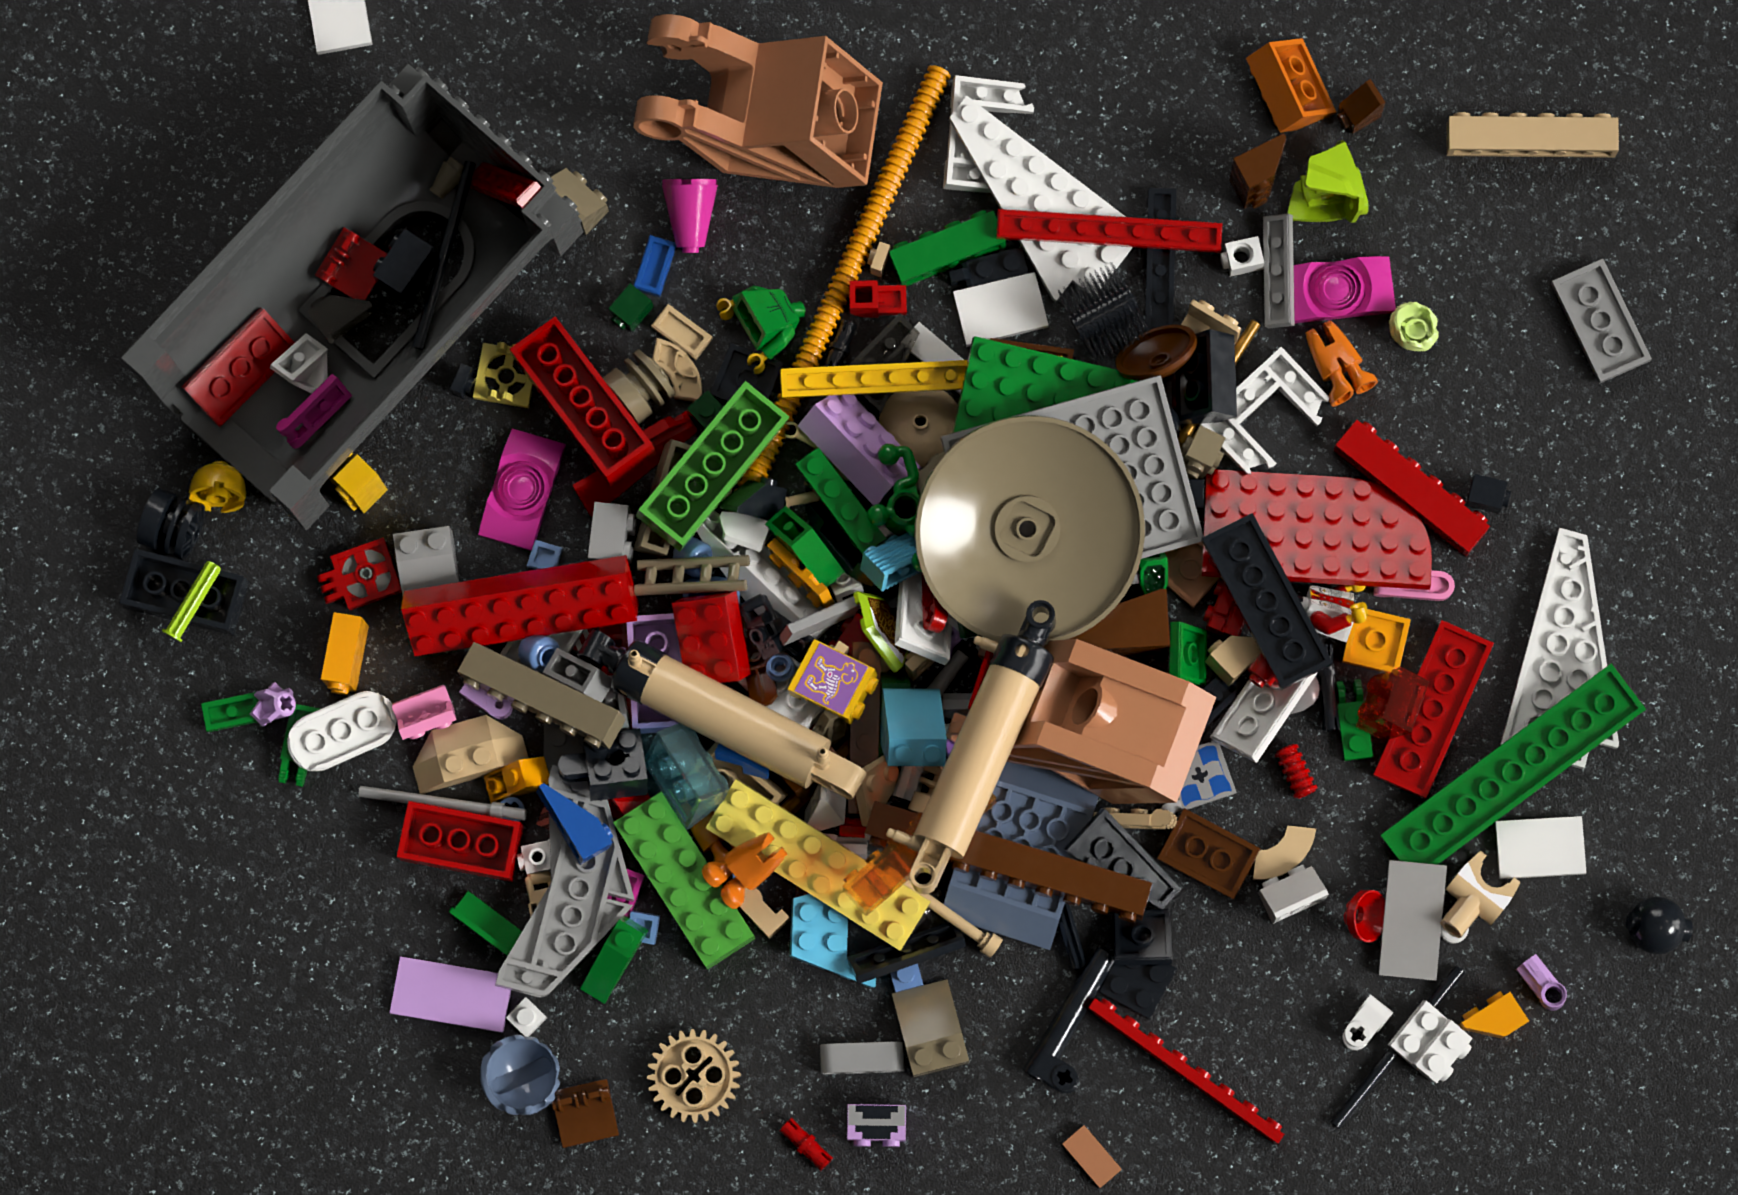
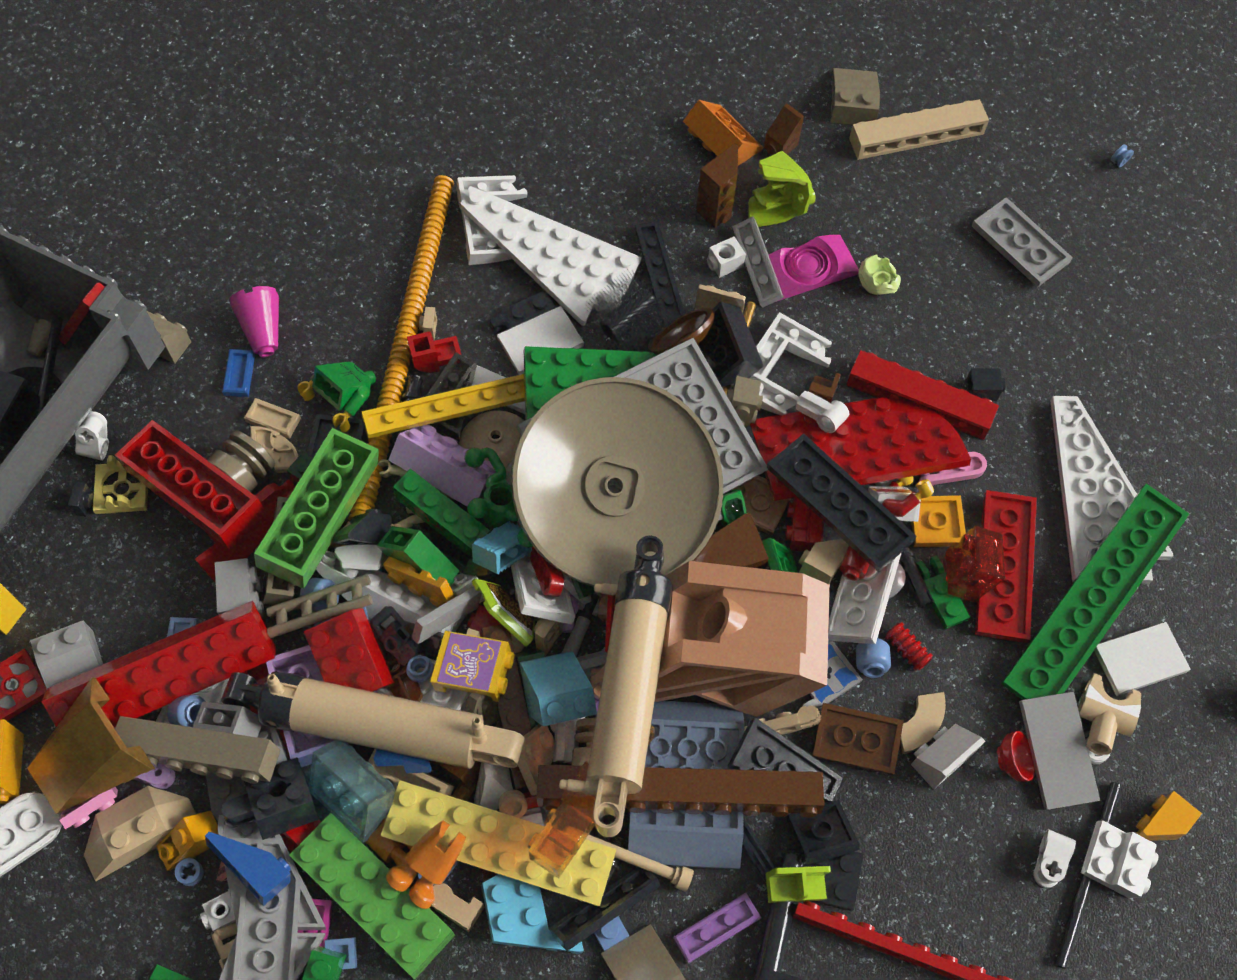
camera: 25 degrees left, 15 degrees down
(434, 672) = (85, 754): none -> pearl gold wedge
(460, 841) = (139, 915): red brick -> none
(489, 318) = (92, 437): none -> white piece
(495, 809) = (170, 875): light grey bar -> none
(521, 489) = (150, 579): dark pink slope -> none
(630, 308) = (222, 407): dark green brick -> none
(772, 106) = (310, 225): nougat piece -> none
(841, 830) = (513, 803): none -> tan tile
(946, 249) = (481, 304): green brick -> none
(1011, 1000) = (717, 928): none -> medium lavender tile
(1098, 981) = (797, 884): none -> lime panel
(1109, 230) = (612, 258): red tile -> none
(1253, 777) = (873, 659): none -> medium blue head
(1290, 489) = (828, 415): none -> white piece
(1302, 452) = (824, 388): none -> reddish brown panel
(1335, 361) = (826, 314): orange piece -> none
(1471, 65) = (854, 96): none -> dark tan slope
(1541, 980) = (1194, 775): lavender piece -> none

